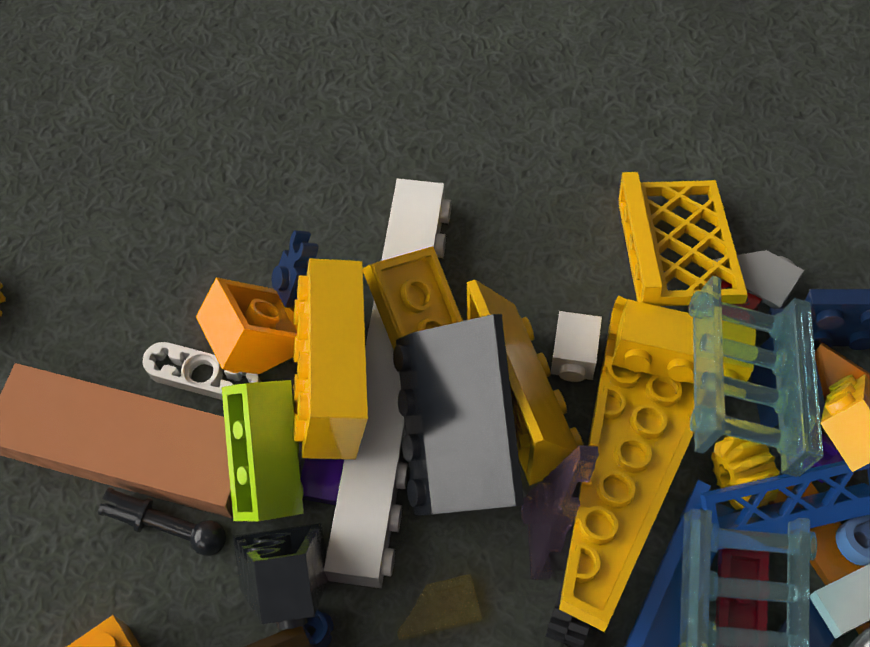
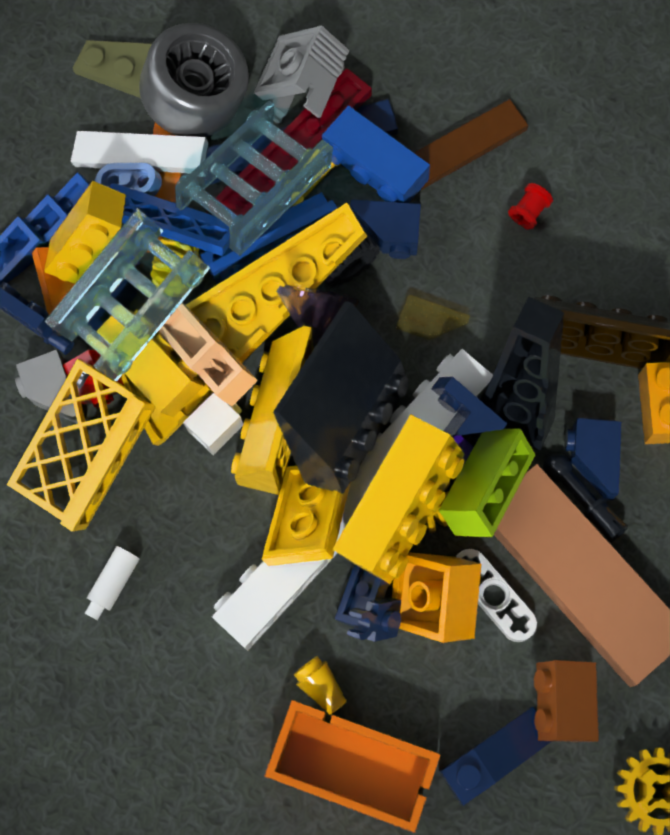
camera: 145 degrees left, 10 degrees up
(78, 316) = (566, 701): none -> dark orange brick
(122, 239) = (493, 758): none -> dark blue slope
(171, 571) = (596, 453): none -> dark blue slope
(240, 155) = (352, 766): none -> orange piece
(314, 203) = (320, 684): none -> yellow cone
(323, 500) = (471, 413): none -> dark blue slope
(557, 171) = (111, 581): none -> white cylinder
(628, 382) = (207, 355): none -> light nougat slope

